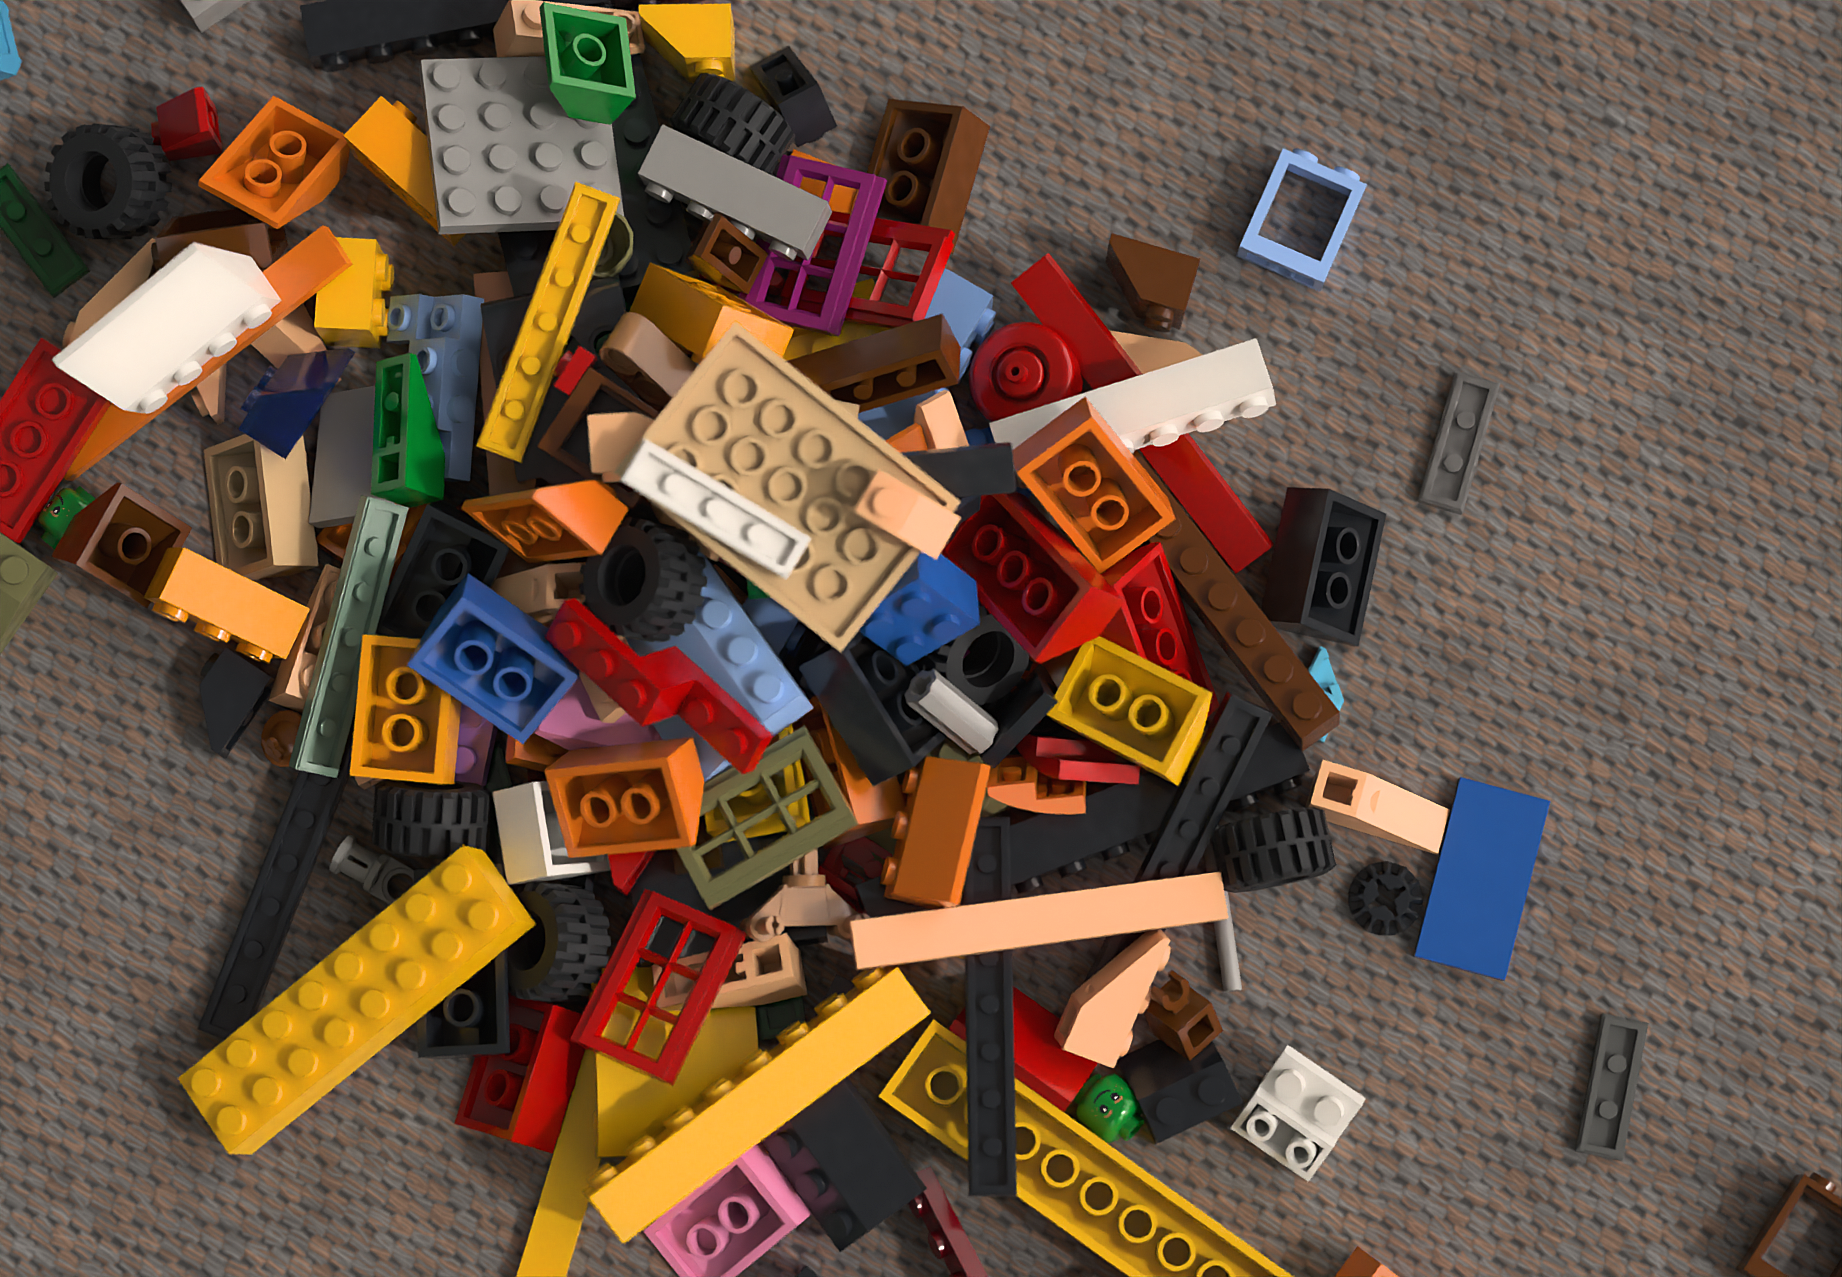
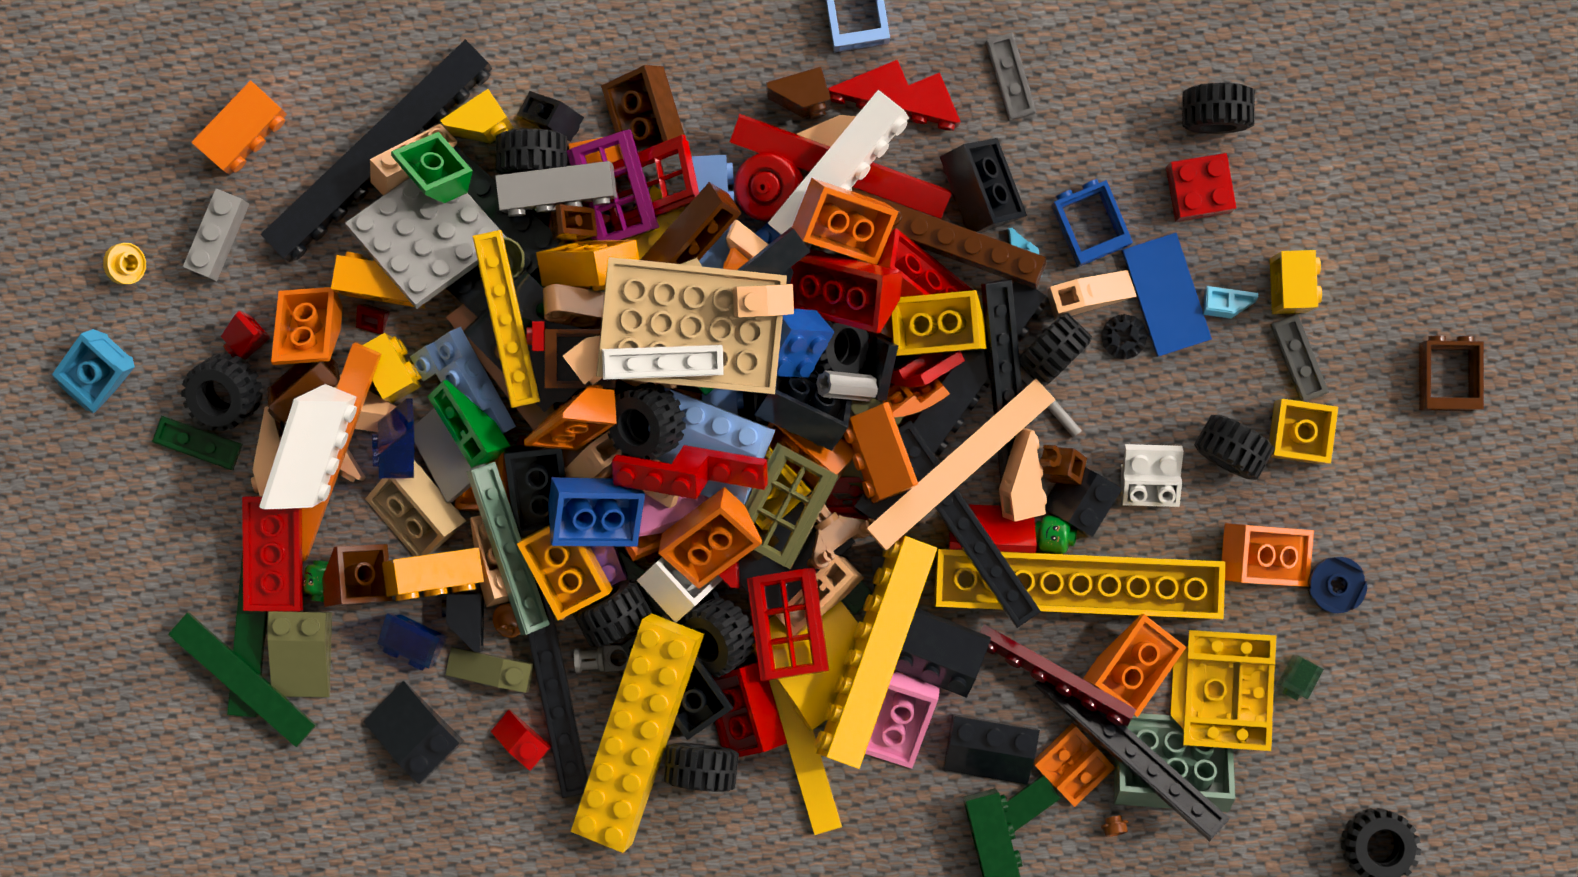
camera: 35 degrees left, 5 degrees up
(56, 807) = (412, 732): none -> black slope
(137, 679) = (411, 639): none -> clear blue slope
(194, 913) = (520, 740): none -> red slope
(217, 790) = (490, 669): none -> olive slope
(373, 213) = (371, 318): none -> dark red slope
(412, 1106) = (701, 767): none -> black tyre
(1312, 394) = (921, 101): none -> red slope
(1430, 758) = (1091, 189): none -> blue window
(1436, 1146) = (1234, 447): none -> black tyre
(1548, 1189) = (1303, 431): none -> yellow brick
(1560, 943) = (1227, 302): none -> medium azure tile
(1623, 760) = (1201, 187): none -> red brick
(1669, 973) = (1295, 282): none -> yellow brick
(1715, 665) = (1218, 108): none -> black tyre

